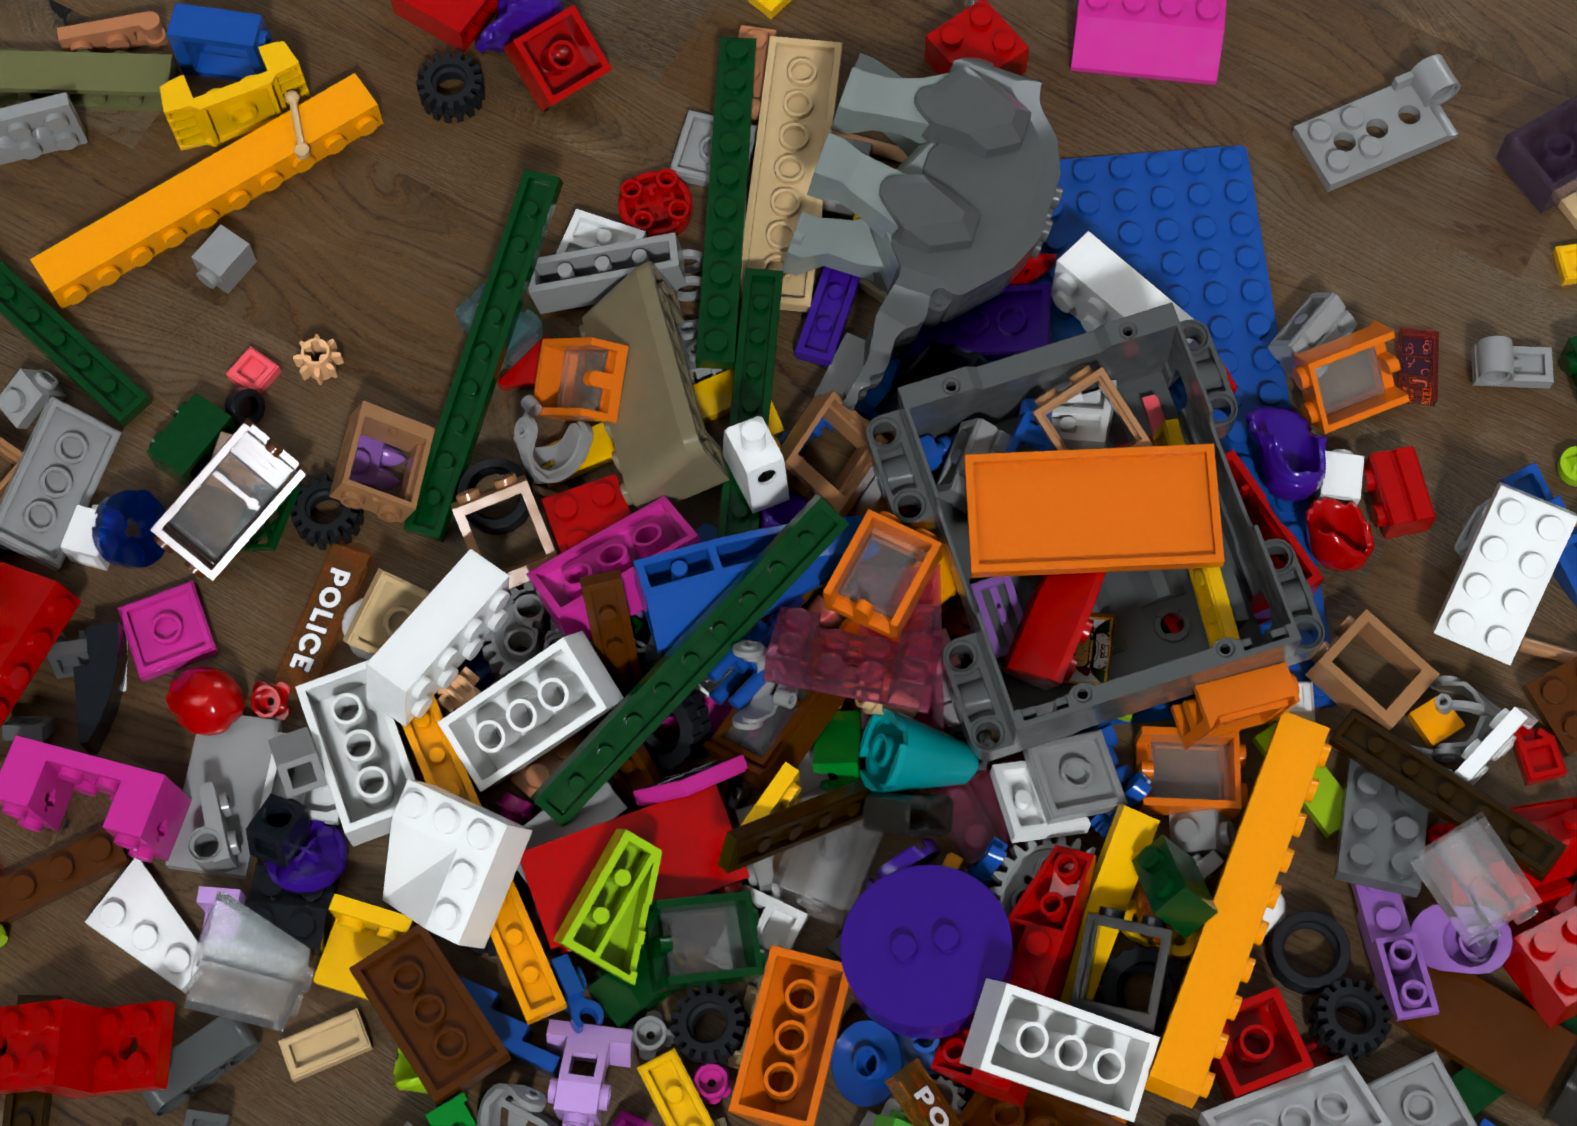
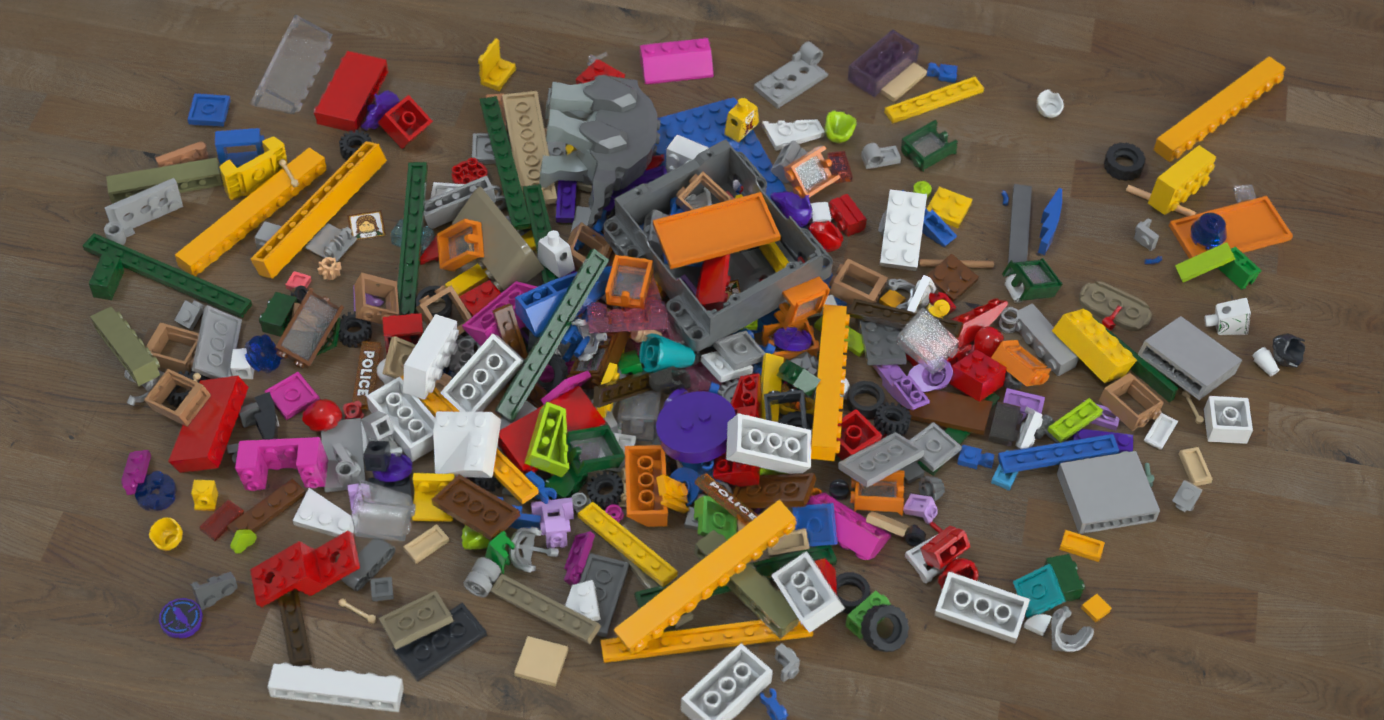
camera: 20 degrees left, 15 degrees down
(334, 221) = (318, 210): none -> light orange brick
(341, 297) = (331, 242): none -> light grey hinge
(411, 551) = (405, 327): none -> red brick
(422, 272) = (367, 225): none -> sticker
(566, 454) = (463, 279): light grey helmet -> none
(836, 1086) = (673, 493): none -> light orange plate
(1193, 777) = (792, 339): none -> dark purple tile
(1246, 211) = (741, 120): none -> yellow torso
(1341, 263) = (800, 131): none -> white wing
(1444, 274) = (839, 126): none -> lime hair
(1517, 788) = (939, 308): none -> yellow hips

